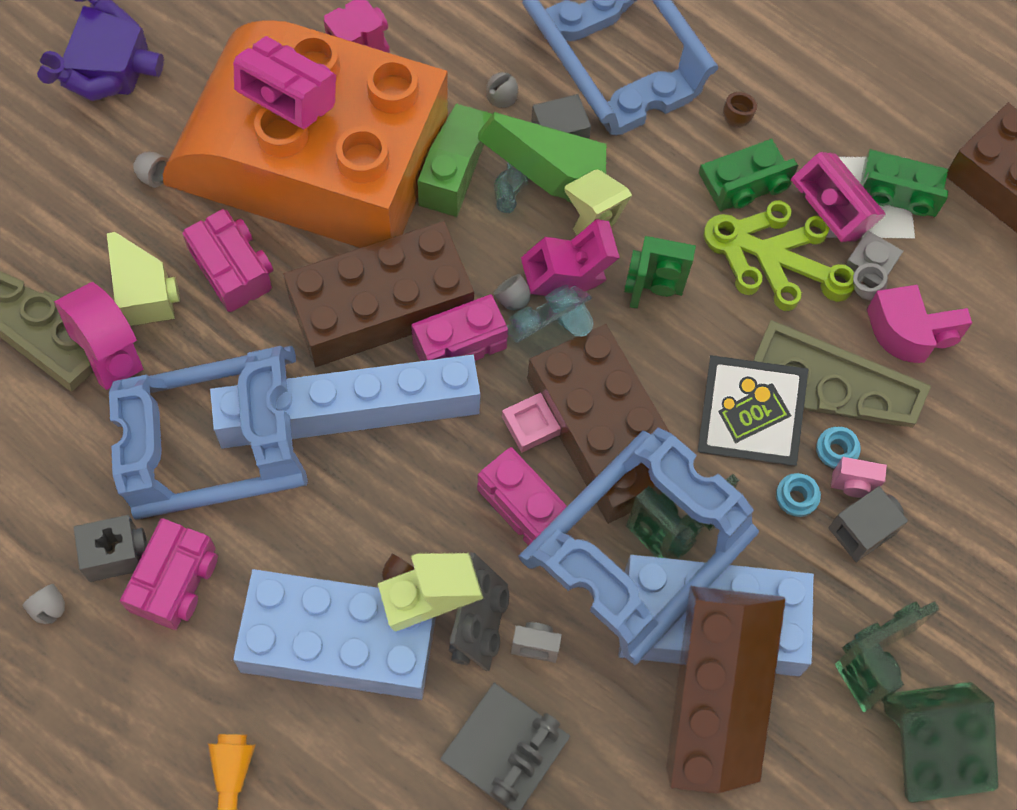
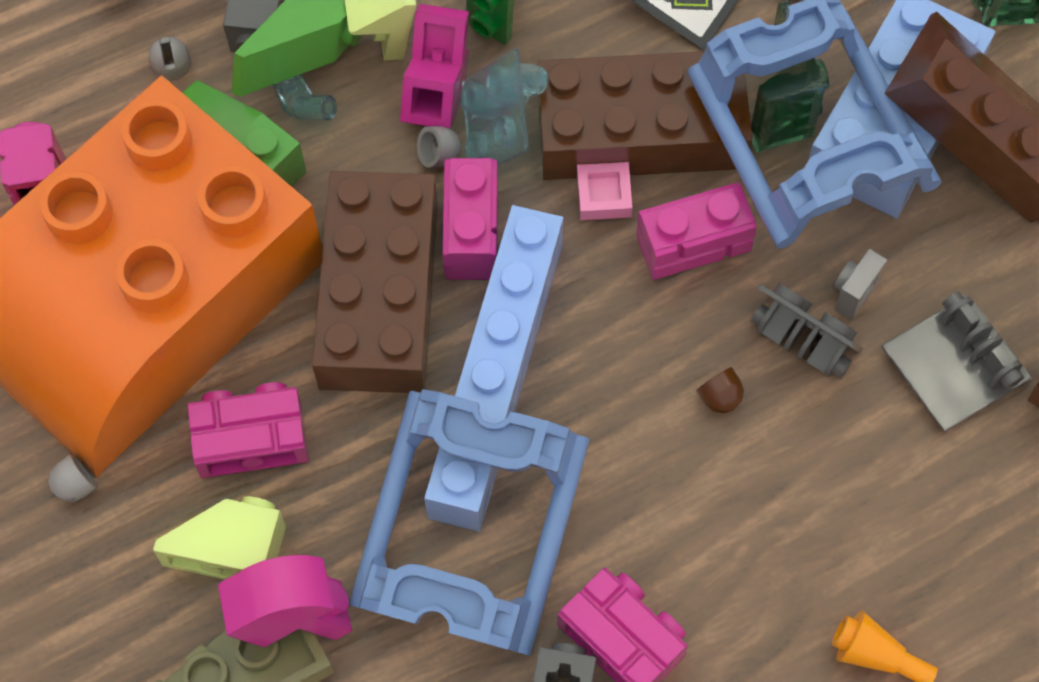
camera: 60 degrees left, 0 degrees up
(284, 82) = (107, 236): dark pink brick -> none
(329, 636) = (770, 478): light blue brick -> none
(431, 589) = (785, 344): yellowish green slope -> none

